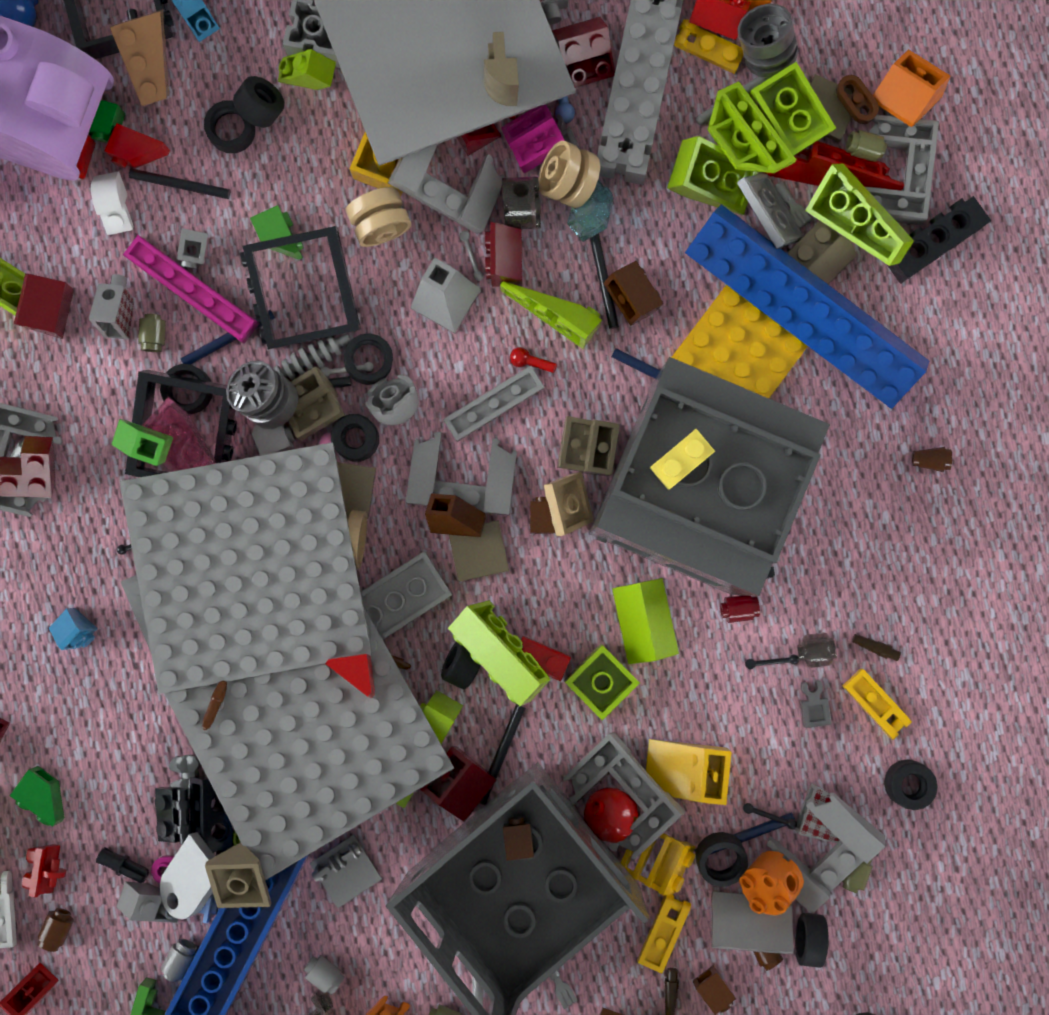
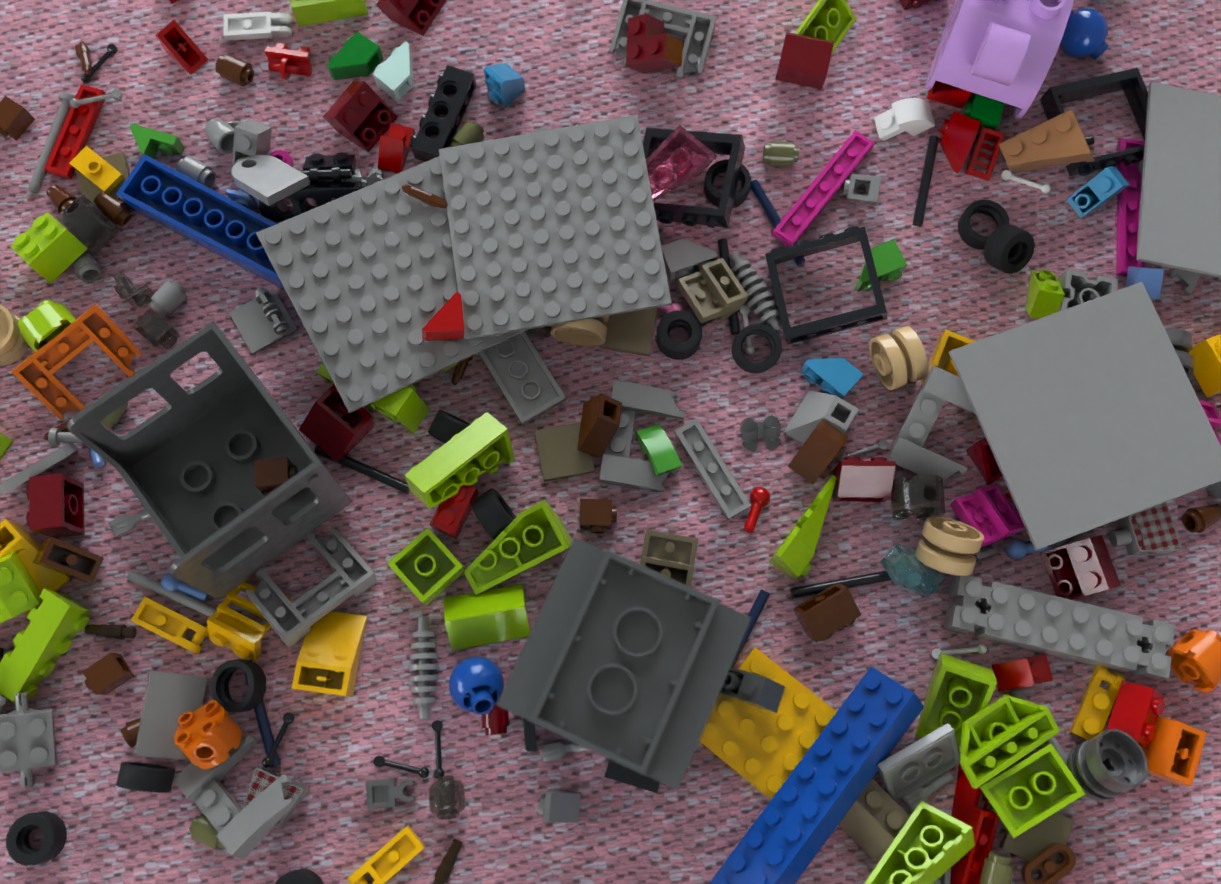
camera: 90 degrees right, 10 degrees down
(59, 749) = (396, 73): none -> light aqua slope
(69, 690) = (450, 82): none -> black brick
(109, 785) = (360, 115): none -> dark red slope
(113, 309) = (803, 119): light grey torso -> none
(122, 865) = (287, 126): black axle -> none
(133, 106) = (989, 135): none -> red slope
(133, 935) = (221, 134): none -> light grey piece
(136, 666) = (468, 134): none -> olive brick
(142, 442) = (671, 131): bright green slope -> none
(147, 744) = (395, 148): none -> red slope
(172, 100) = (1006, 175): none -> white hinge
(237, 879) = (260, 211): dark tan slope -> none
(262, 394) = (719, 243): flat silver wheel -> none
(359, 982) = (156, 329): none -> clear smoke brick
(393, 400) = (714, 369): light grey cylinder -> none
(396, 281) = (832, 374): none -> dark azure slope
(451, 347) = (769, 429): none -> dark grey piece
(475, 456) = (659, 449): none -> bright green slope
(477, 298) = (818, 451): none -> reddish brown brick
(500, 73) = (1051, 467): dark tan brick -> none
(546, 618) = (492, 512): none -> black tyre
(568, 503) = (611, 533): tan plate -> none
(576, 585) = (524, 543): none -> lime wedge
(610, 814) = (293, 570): red cylinder -> none
(622, 935) = (171, 583): none -> medium blue bar
(632, 938) = (175, 595): none -> light grey bar
(661, 150) = (981, 648): none -> white hinge
(682, 113) = (1022, 672): none -> red slope
(682, 459) = (641, 622): light yellow plate -> none
(707, 679) = (424, 678): none -> light grey piece
(714, 355) = (753, 689): none -> dark grey slope
(714, 626) = (476, 685): none -> blue brick
(785, 717) = (380, 761): none -> black hinge
(822, 542) = (560, 806): none -> light grey slope

